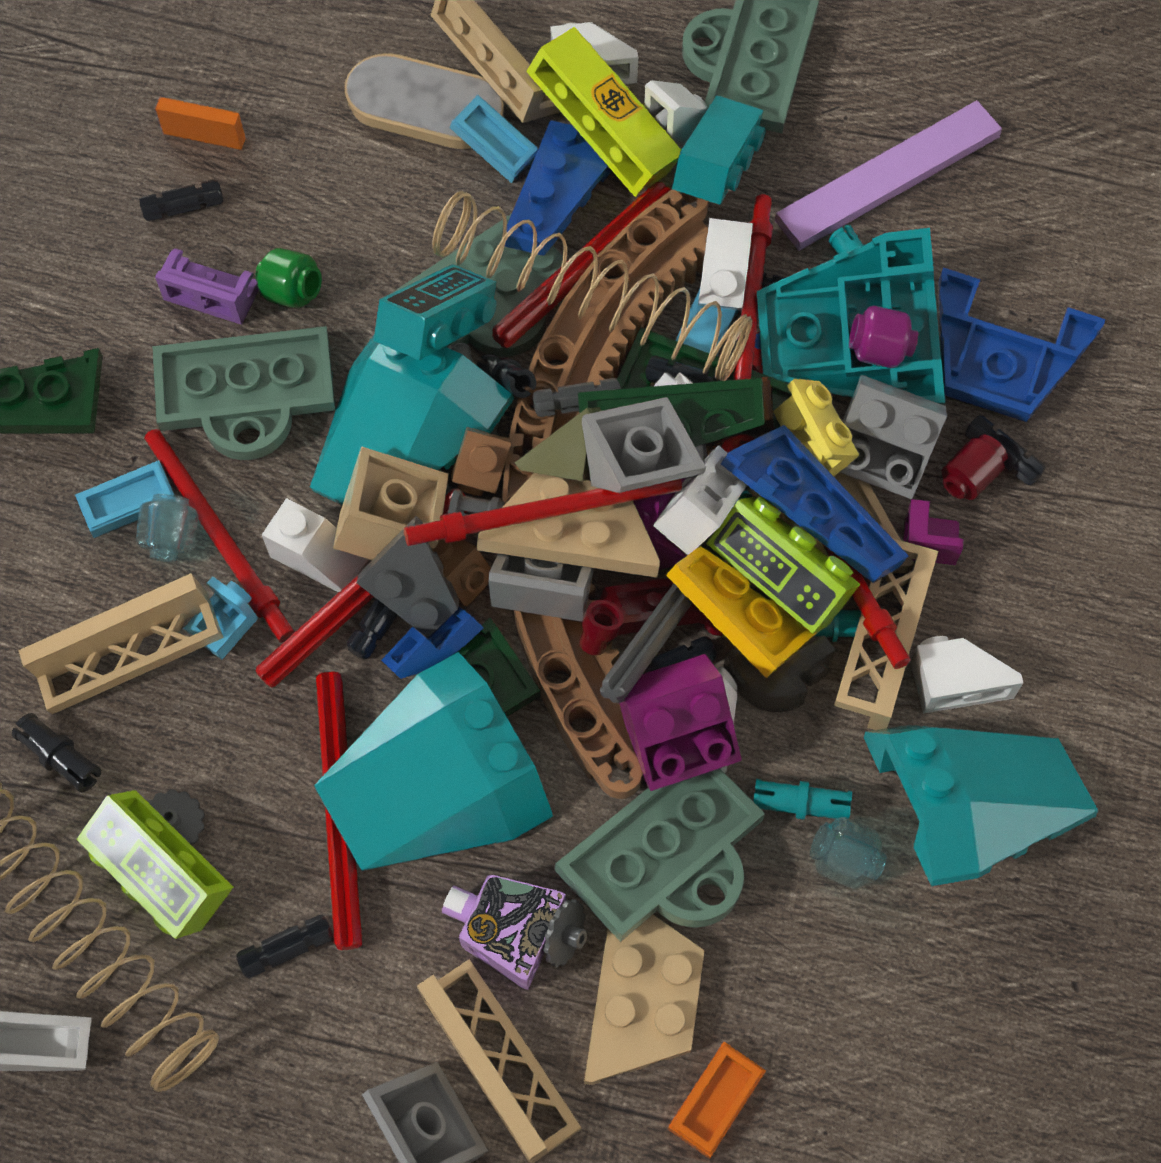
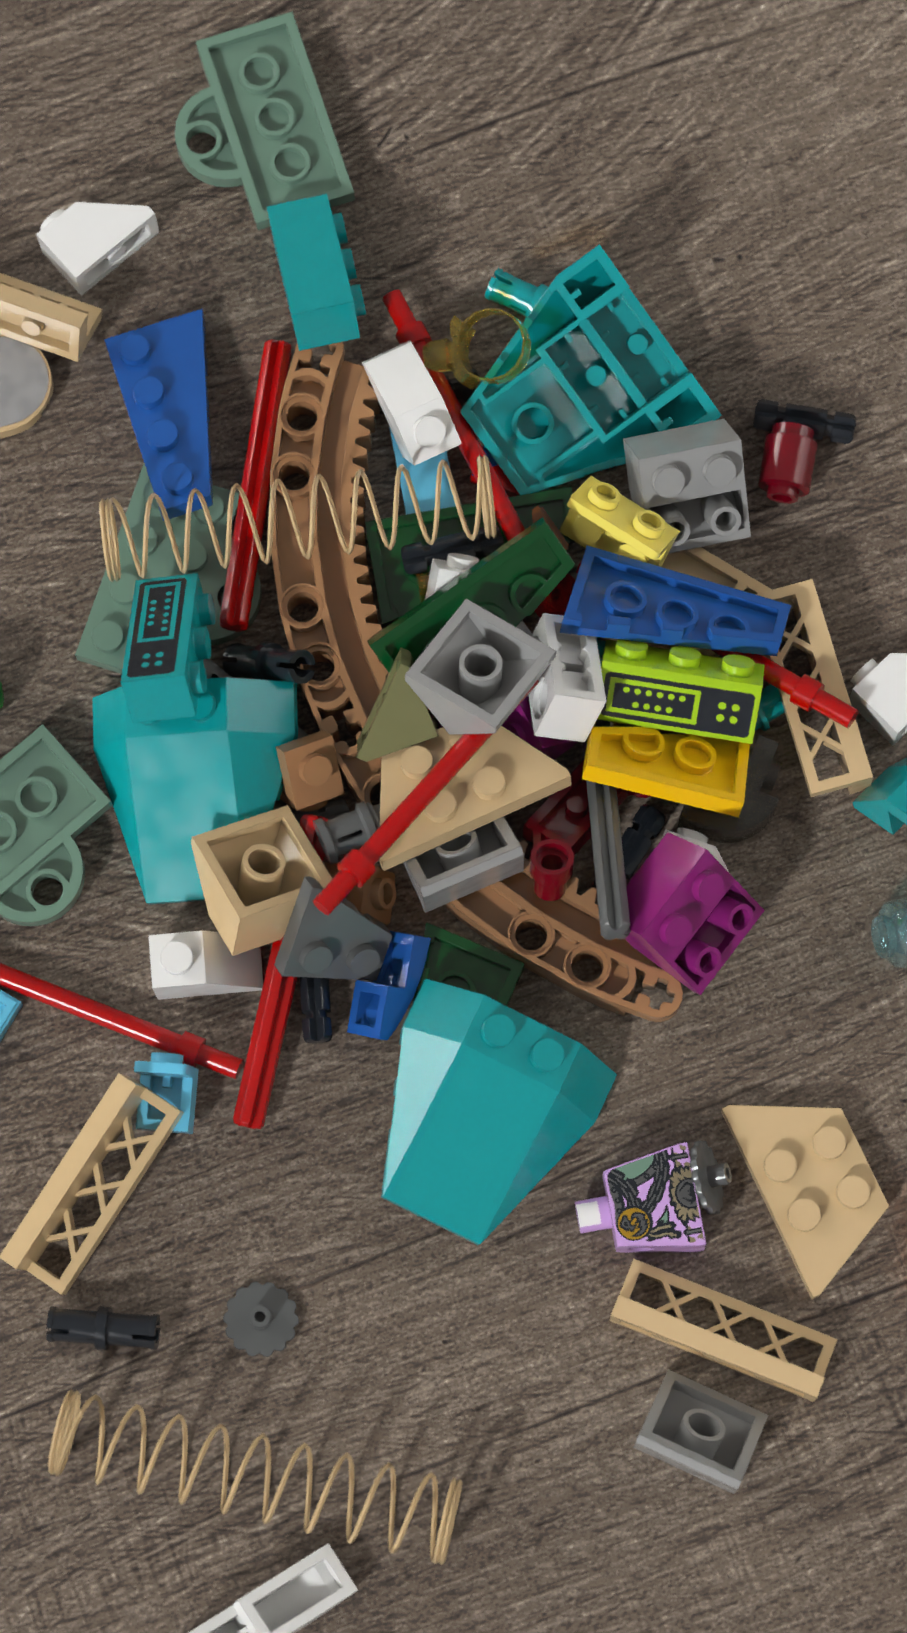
camera: 30 degrees left, 10 degrees up
(154, 864) = (283, 1368): lime brick -> none
(167, 527) = (41, 1039): clear light blue head -> none
(284, 946) = (455, 1360): black axle -> none
(341, 861) = (450, 1247): red axle -> none
(494, 138) = (62, 399): medium azure tile -> none
(567, 396) = (354, 648): dark grey axle -> none
(604, 111) = (167, 303): neon yellow brick -> none
(662, 853) = (746, 1044): sand green plate -> none
(674, 109) = (238, 258): white slope -> none
(781, 250) = (453, 356): none -> clear yellow piece
(802, 799) = (838, 907): teal pin -> none
(883, 337) = (620, 386): magenta head -> none
(887, 175) = (496, 180): lavender tile -> none
(932, 532) = (789, 558): magenta panel -> none
(998, 365) = (743, 332): blue wing -> none

